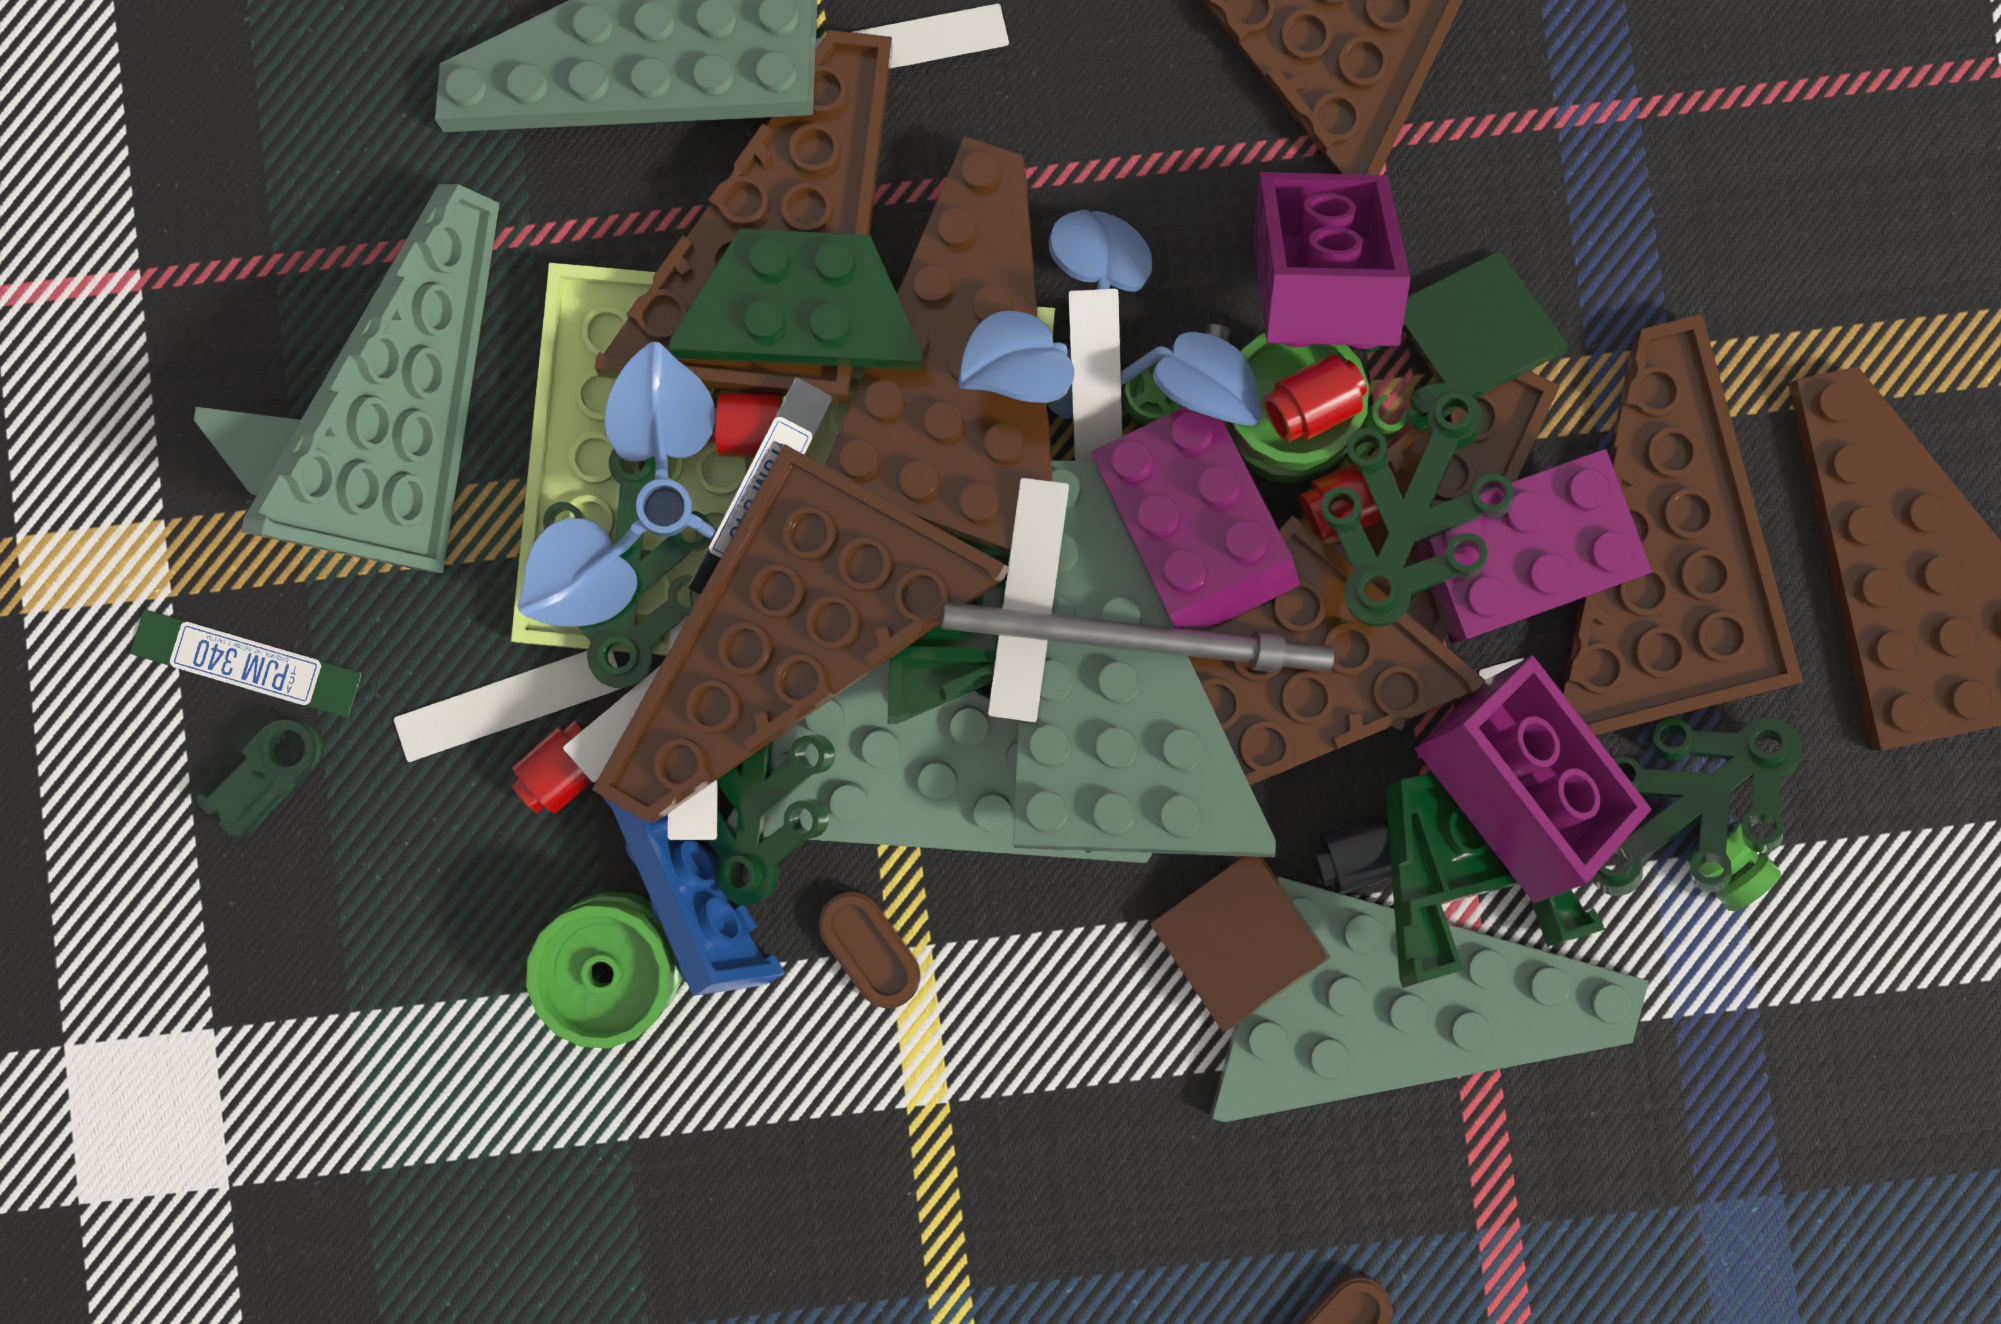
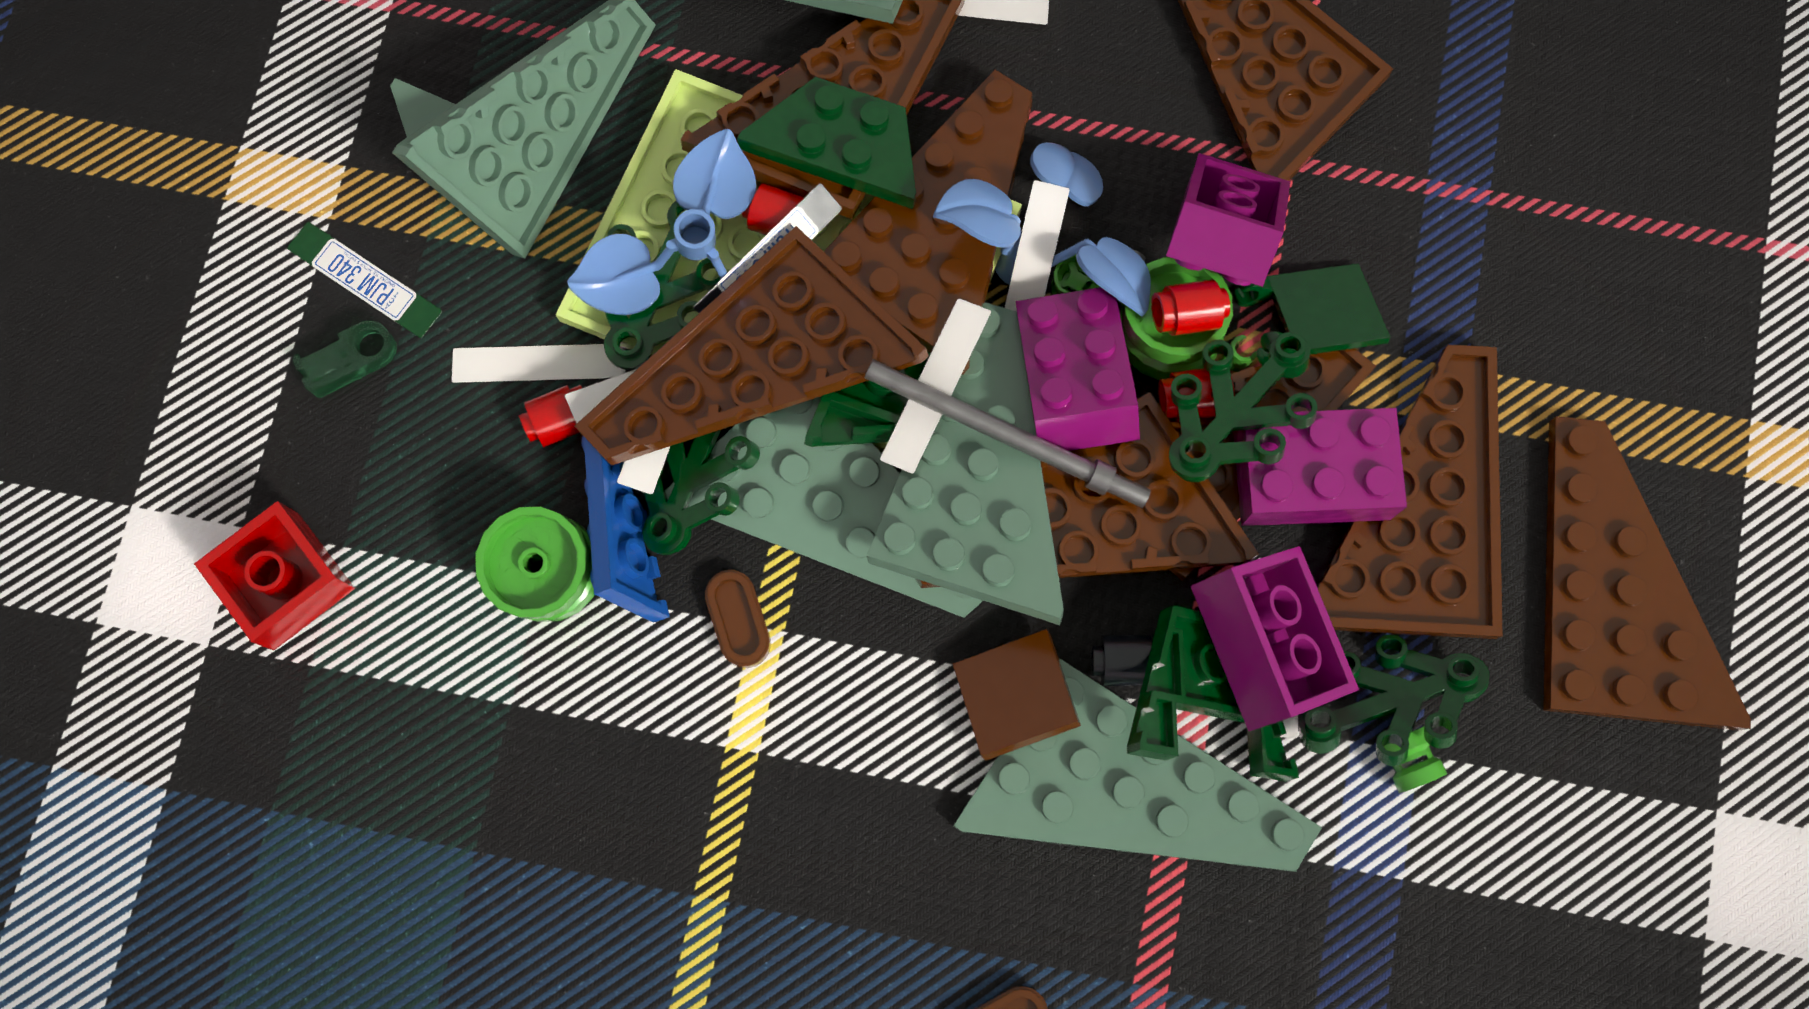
camera: 20 degrees right, 10 degrees down
(282, 1086) = (274, 576): none -> red brick

